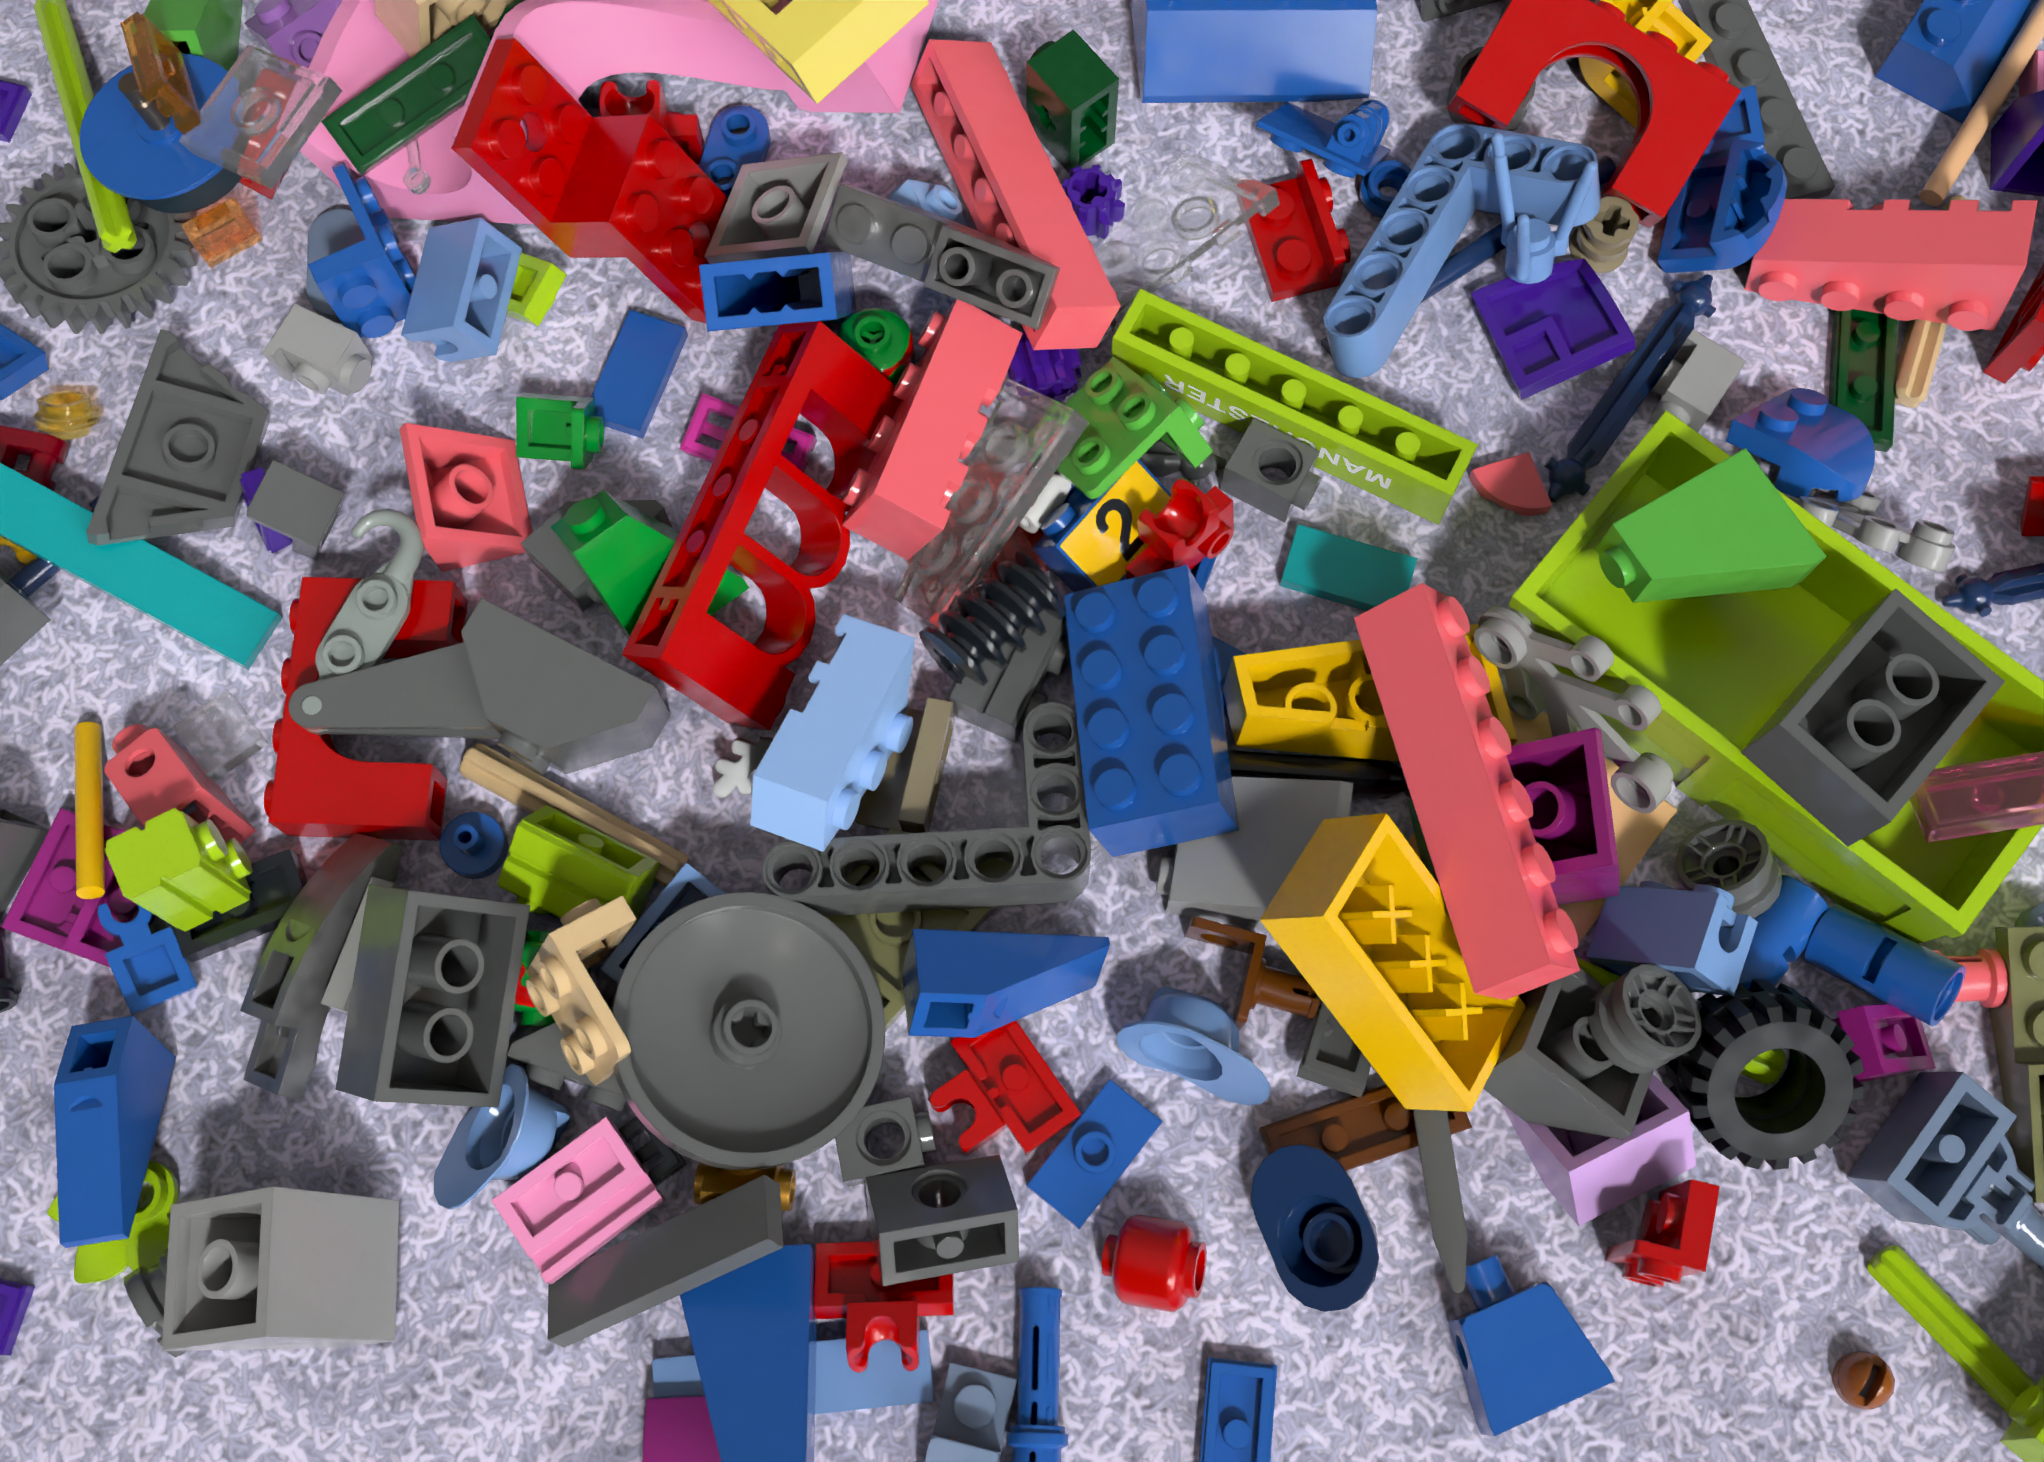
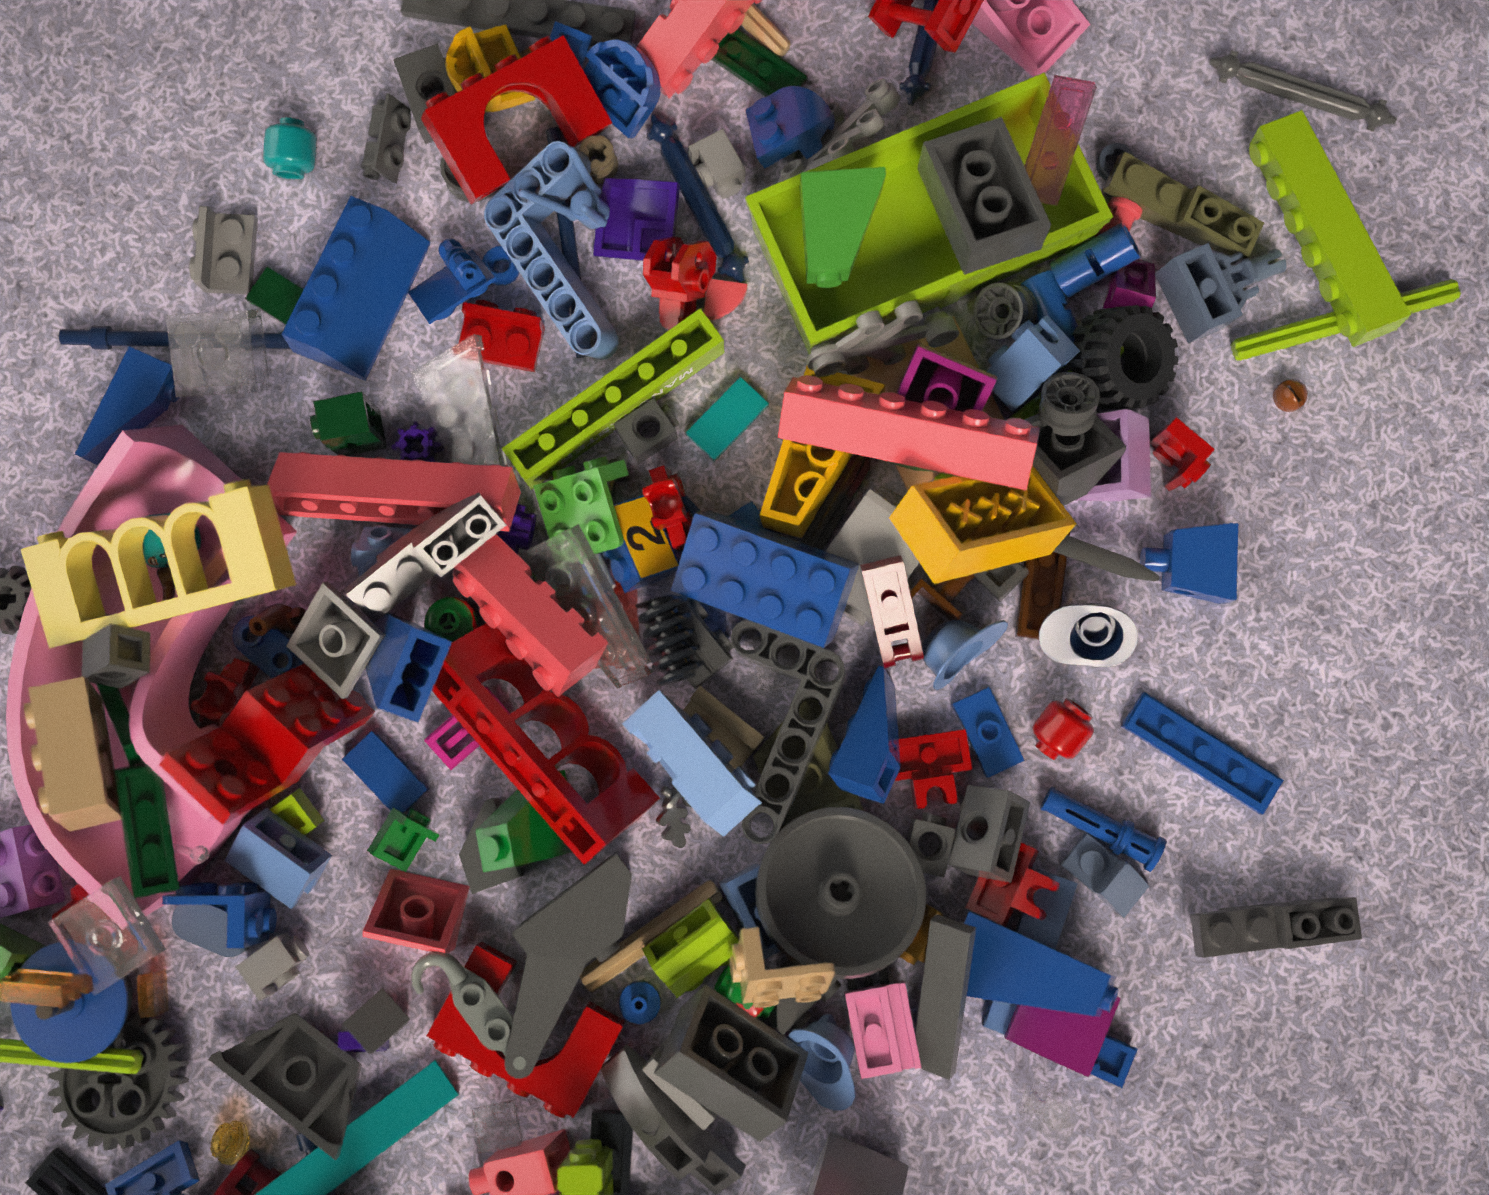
camera: 65 degrees left, 10 degrees up
(771, 137) = (276, 617): none -> reddish brown arm
(1194, 907) = (892, 610): none -> plate
(1510, 404) = (678, 278): none -> red hinge

